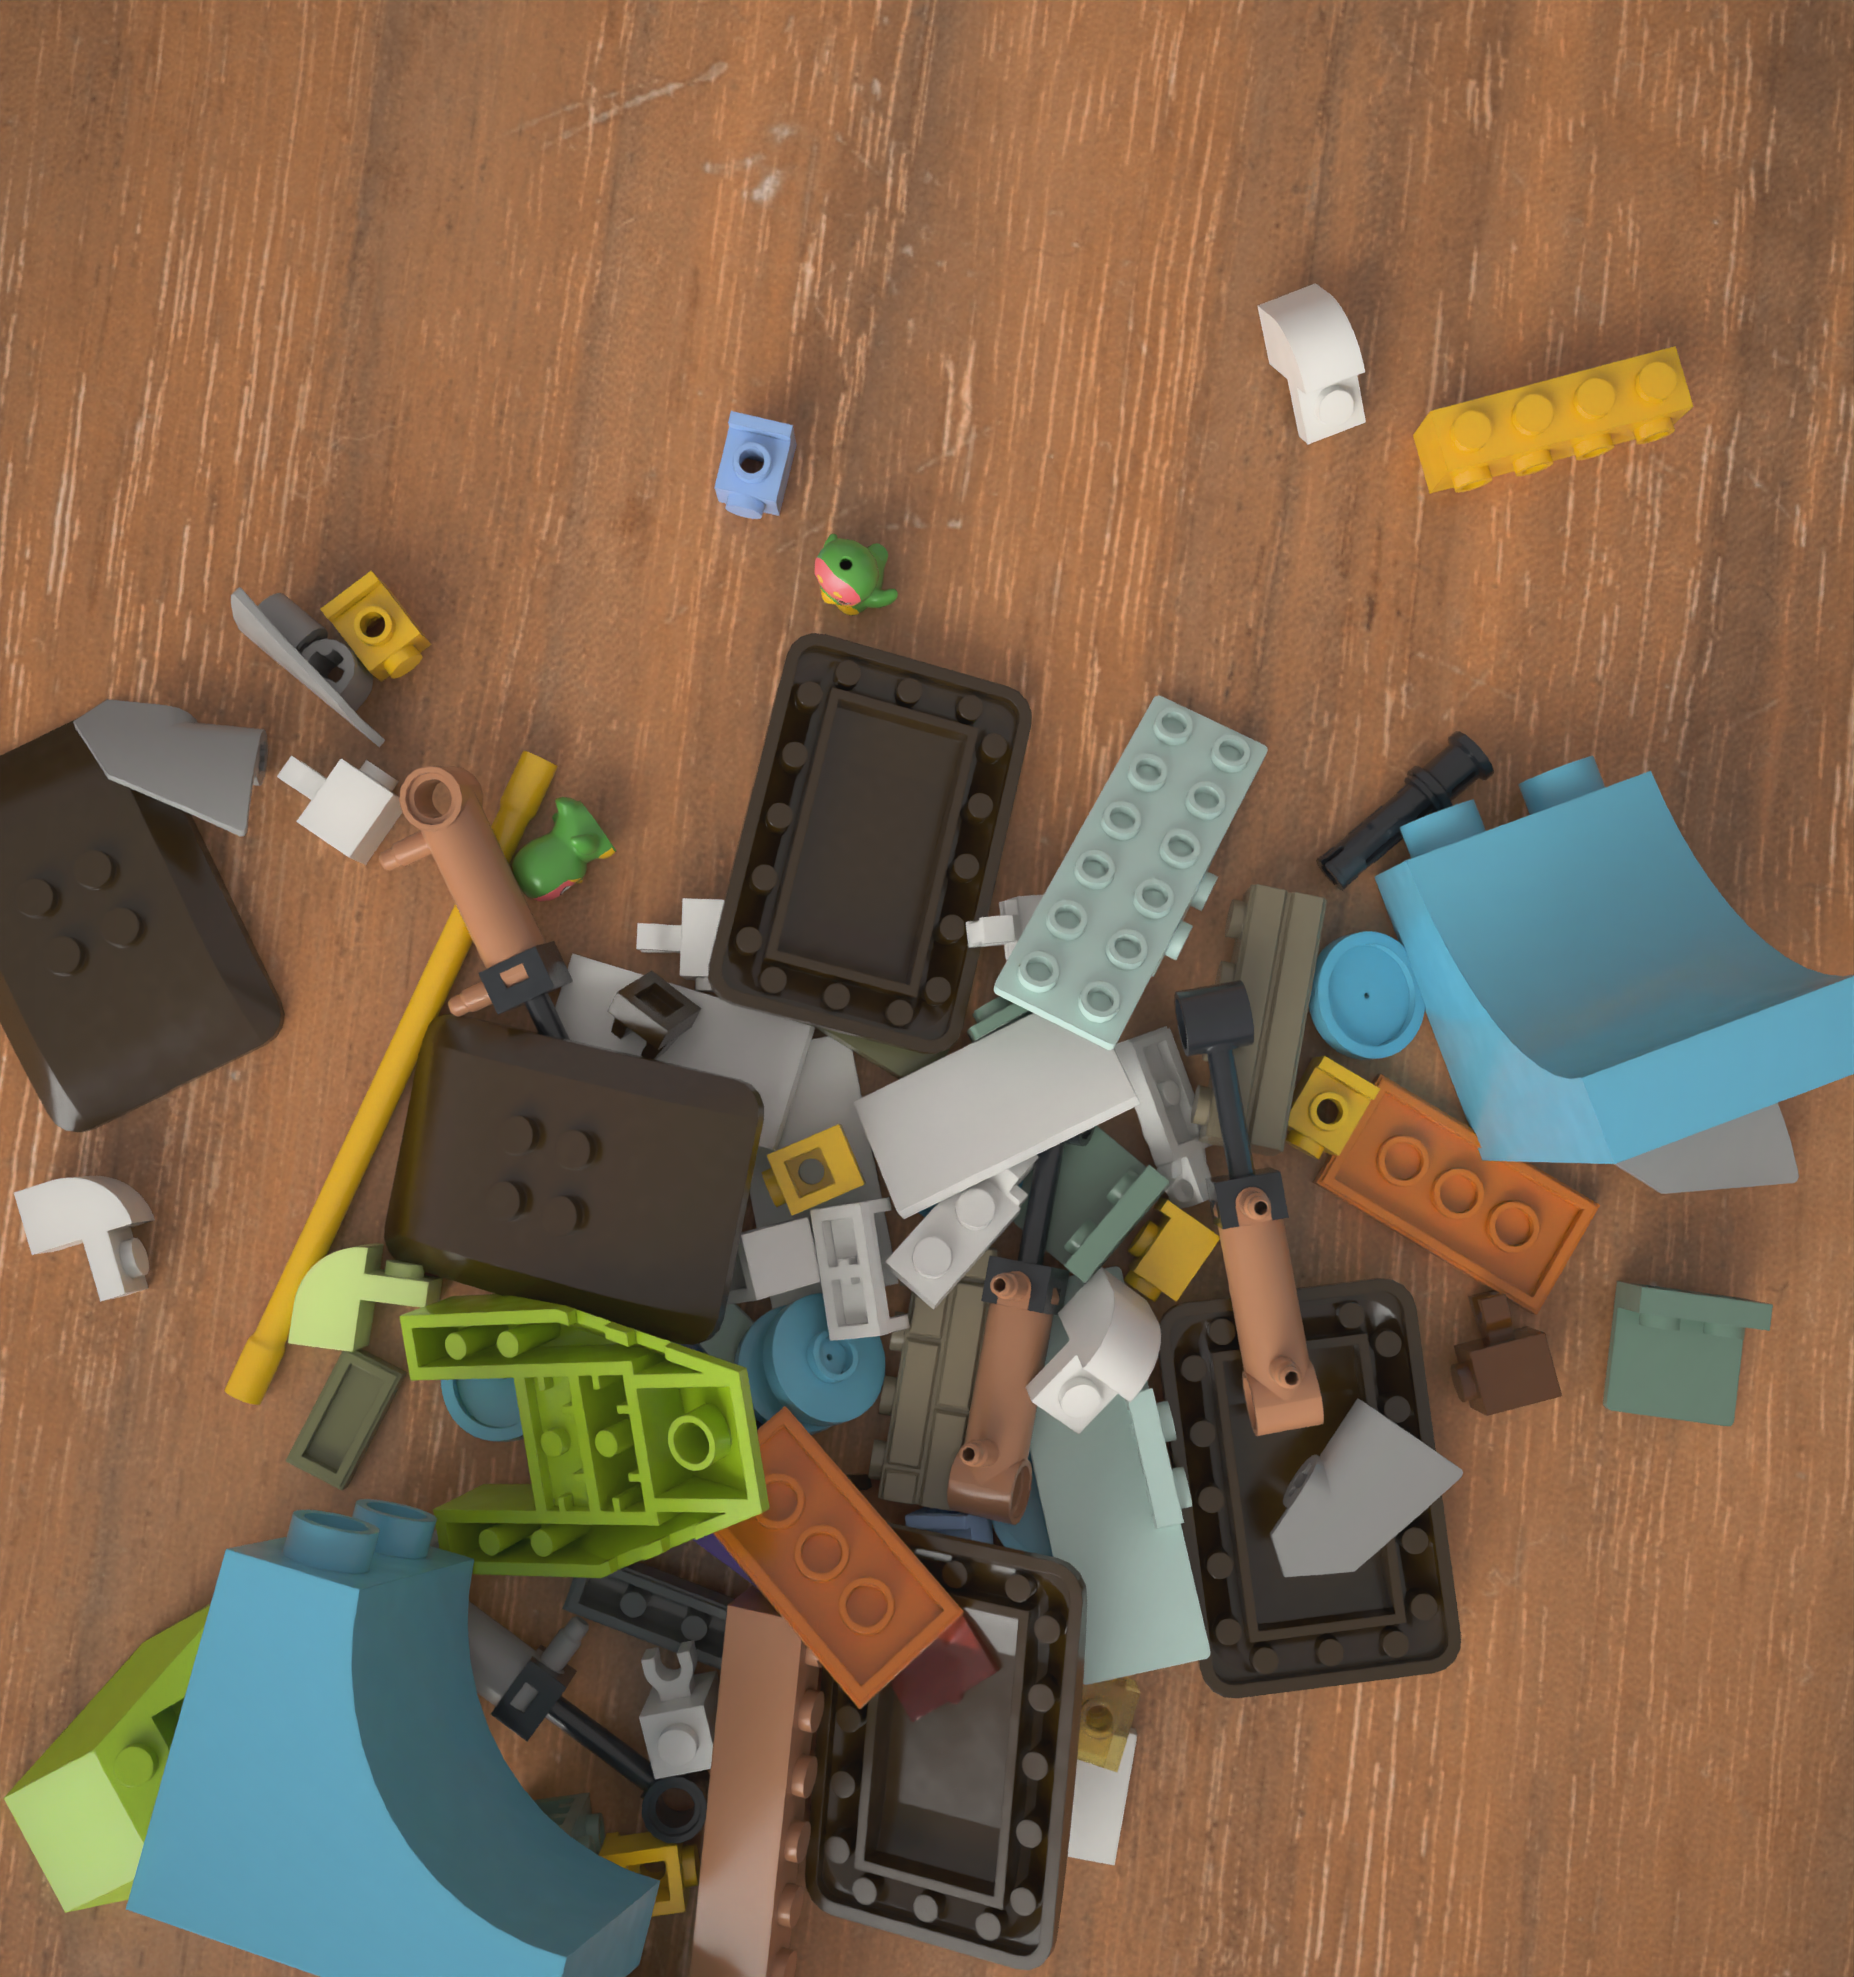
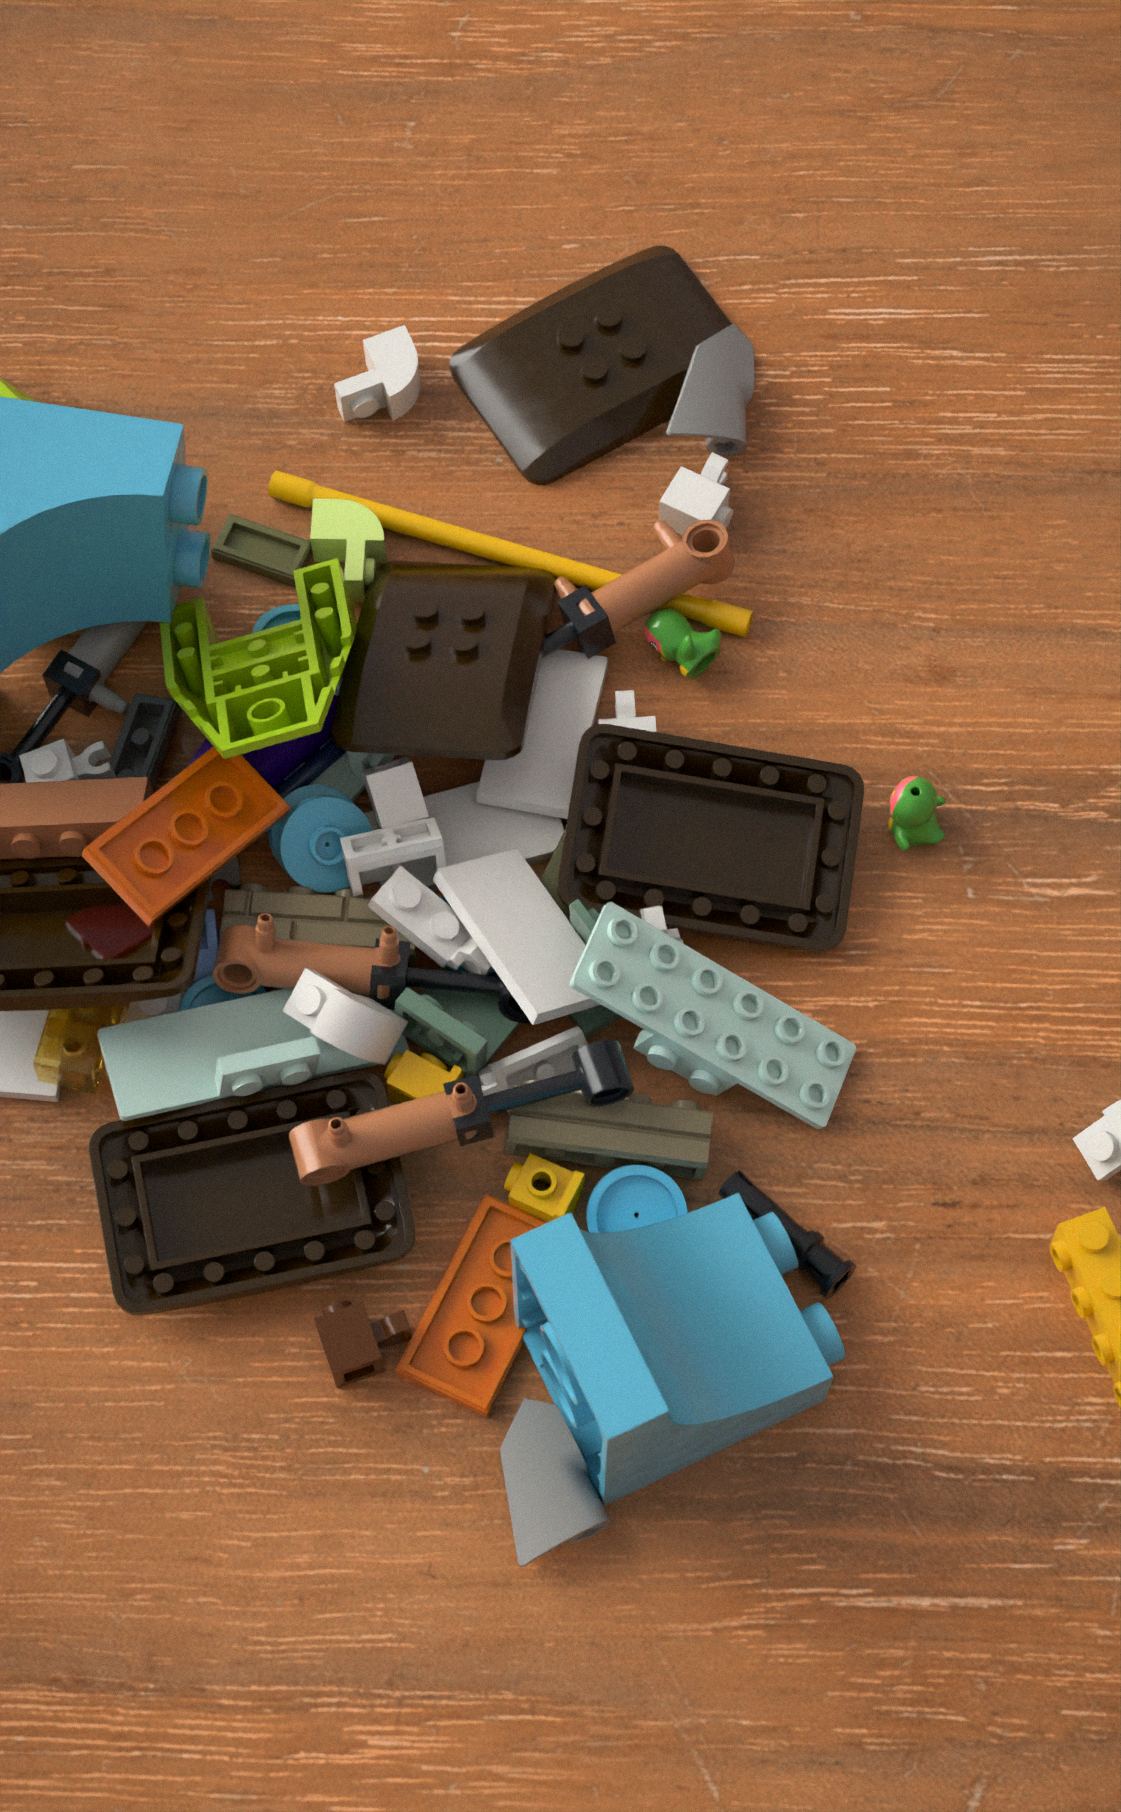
camera: 90 degrees right, 20 degrees down
(306, 653) = (807, 460): light grey panel -> none
(363, 607) = (830, 508): yellow brick -> none
(653, 1012) = (568, 703): dark brown tile -> none
(762, 441) = (988, 743): light blue brick -> none
(839, 1165) = (459, 806): yellow brick -> none
(1357, 1495) = (249, 1211): light grey panel -> none
(1678, 1352) = (373, 1480): sand green bracket -> none

